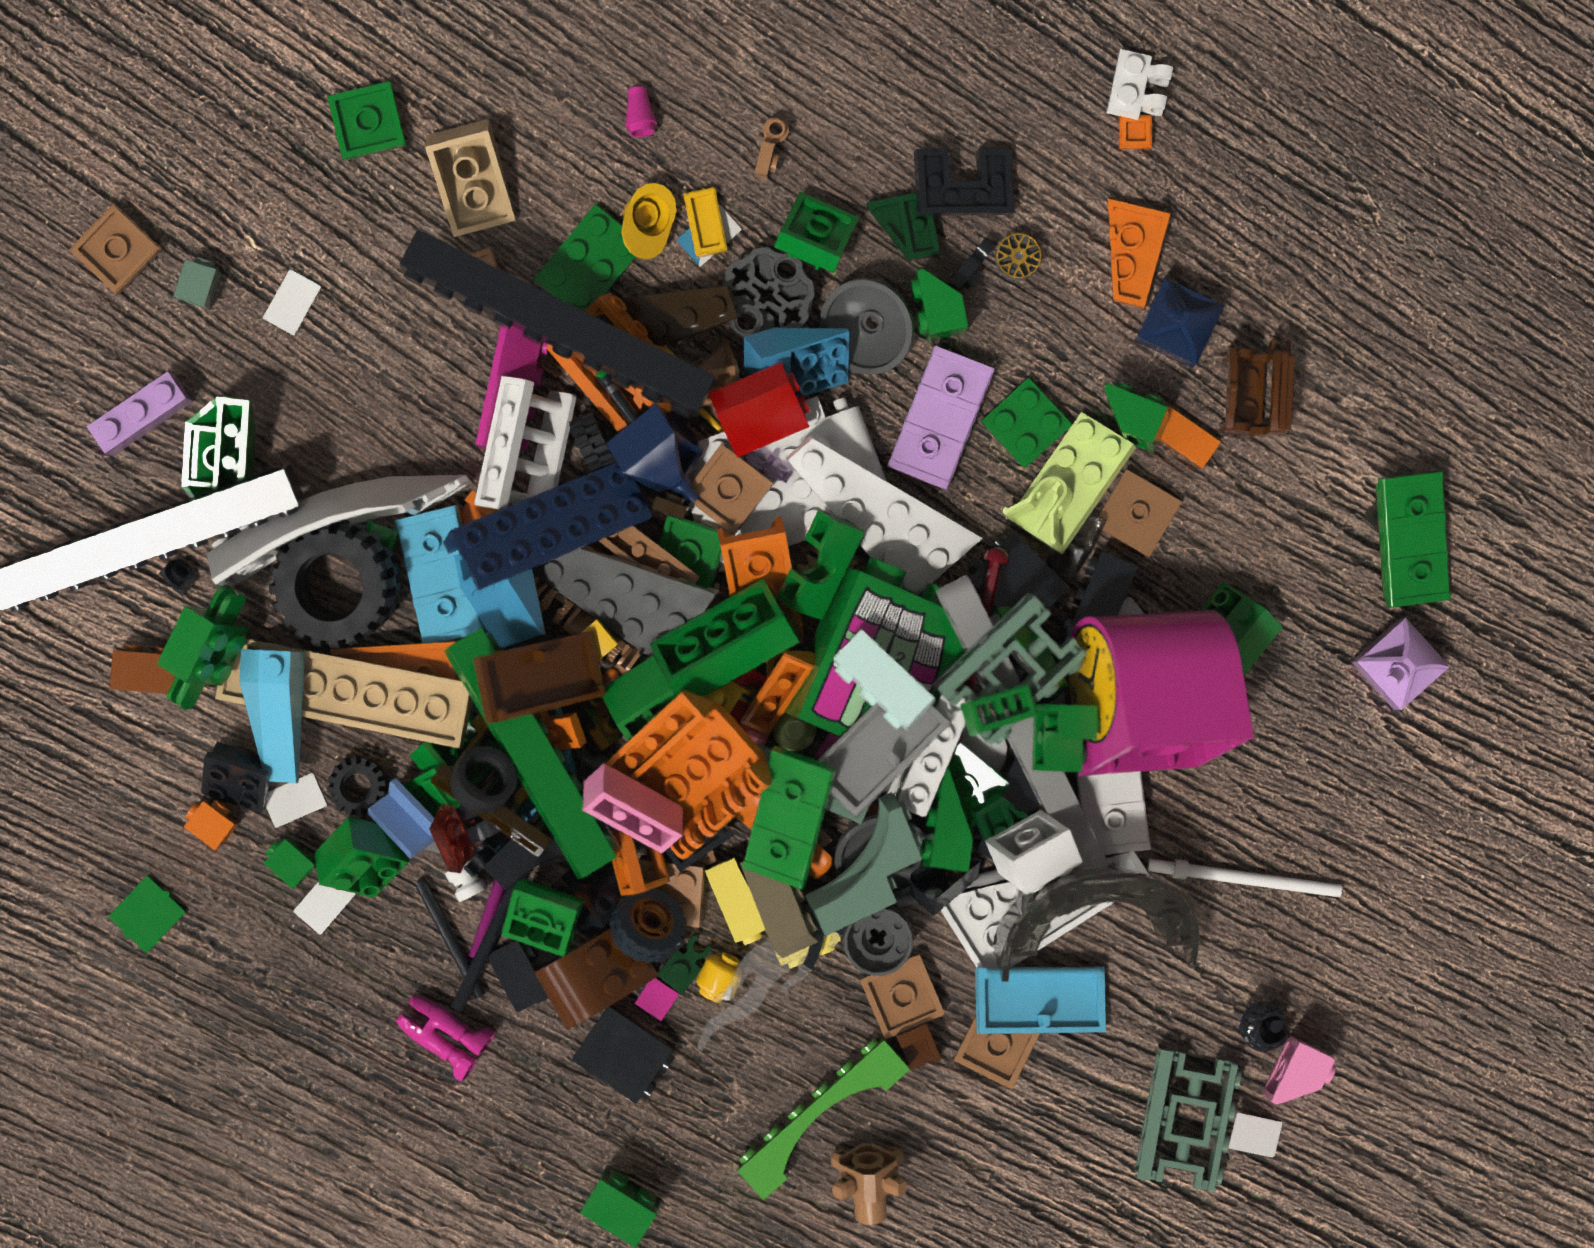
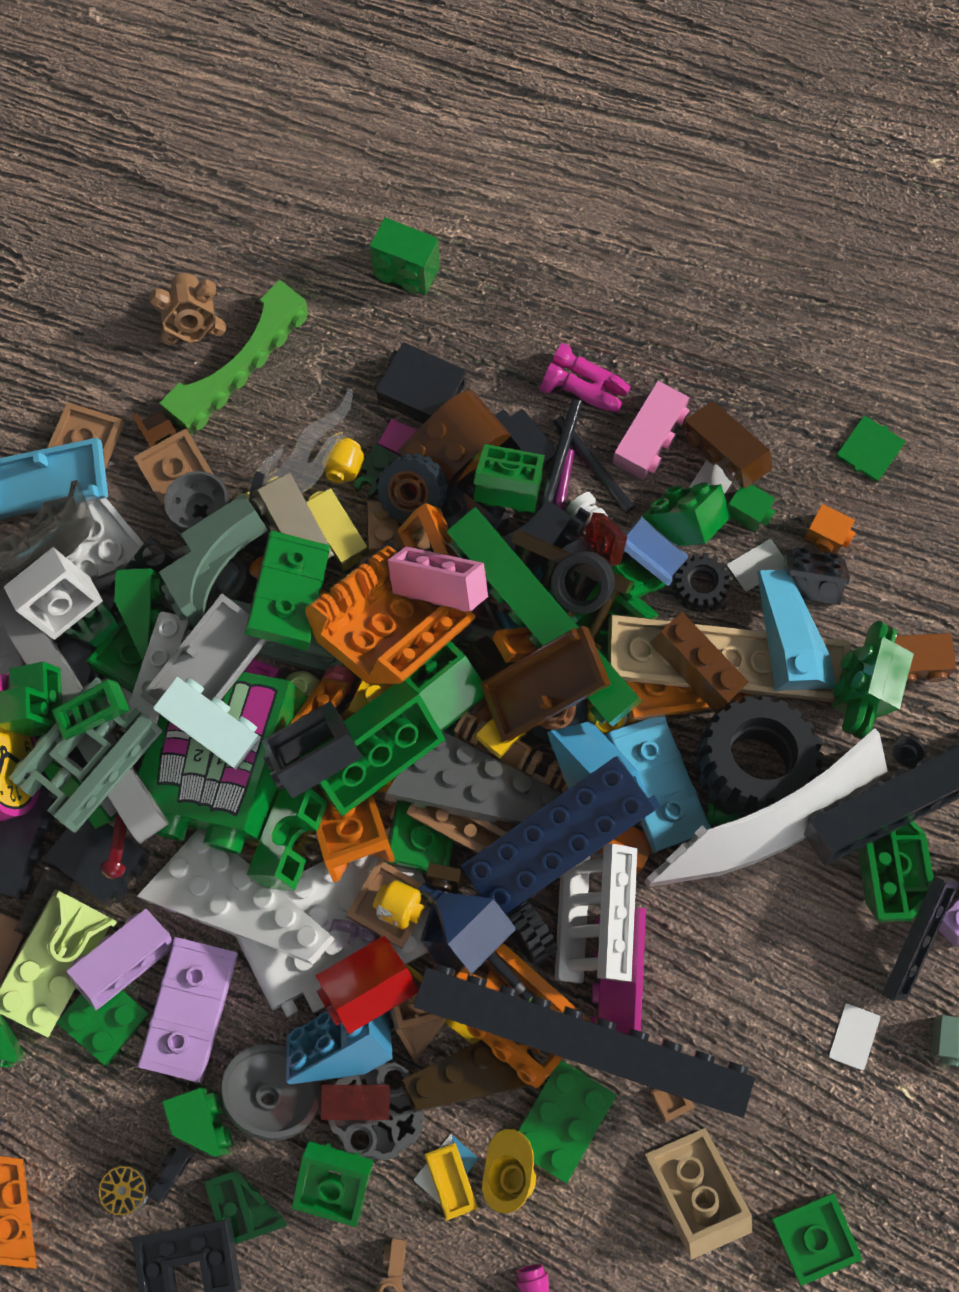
camera: 175 degrees right, 15 degrees down
(209, 381) = (920, 938): none -> black tile
(303, 931) = (728, 445): none -> reddish brown brick
(378, 684) = (699, 662): none -> reddish brown brick
(380, 964) = (651, 431): none -> bright pink brick
(718, 482) = (398, 904): none -> yellow head
(785, 302) = (355, 1102): none -> clear red plate
(788, 657) = (300, 738): none -> black window
(1002, 475) = (120, 958): none -> lavender brick

